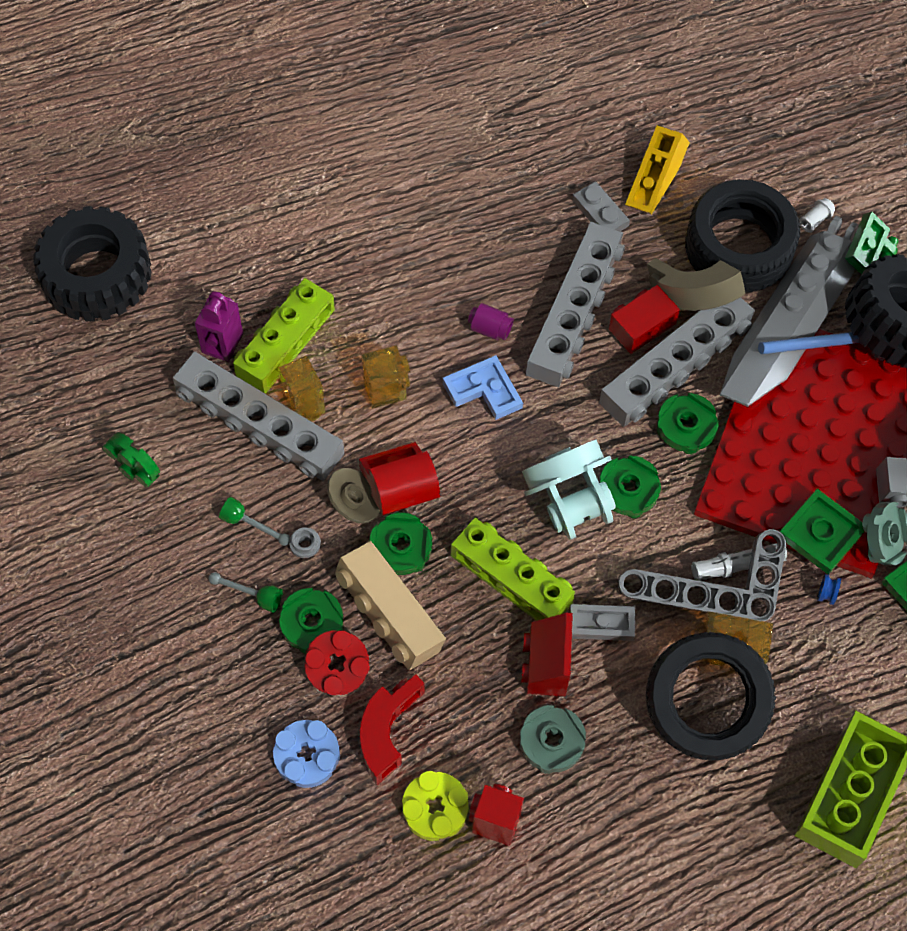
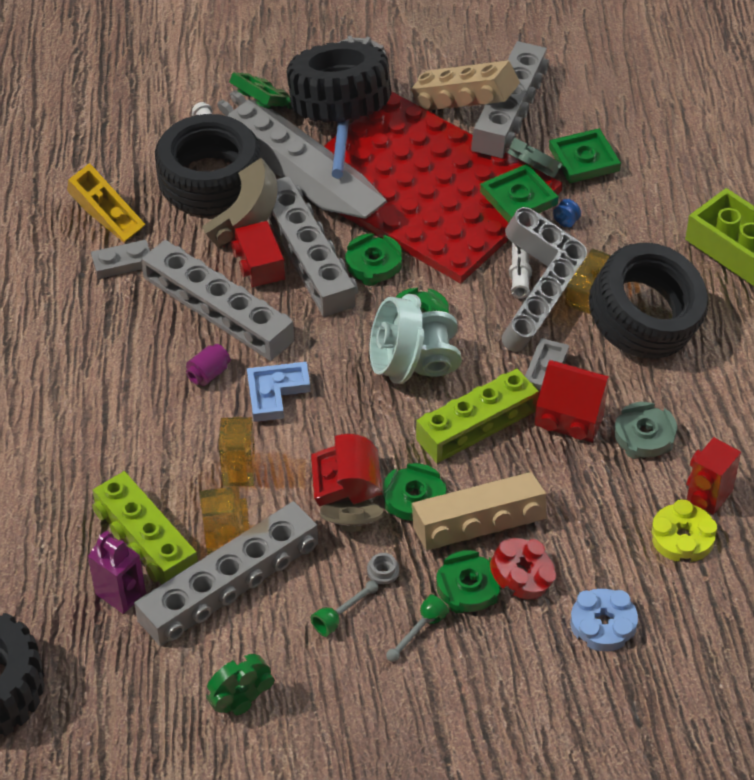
camera: 70 degrees left, 15 degrees down
(380, 713) = (601, 554): red arch -> none

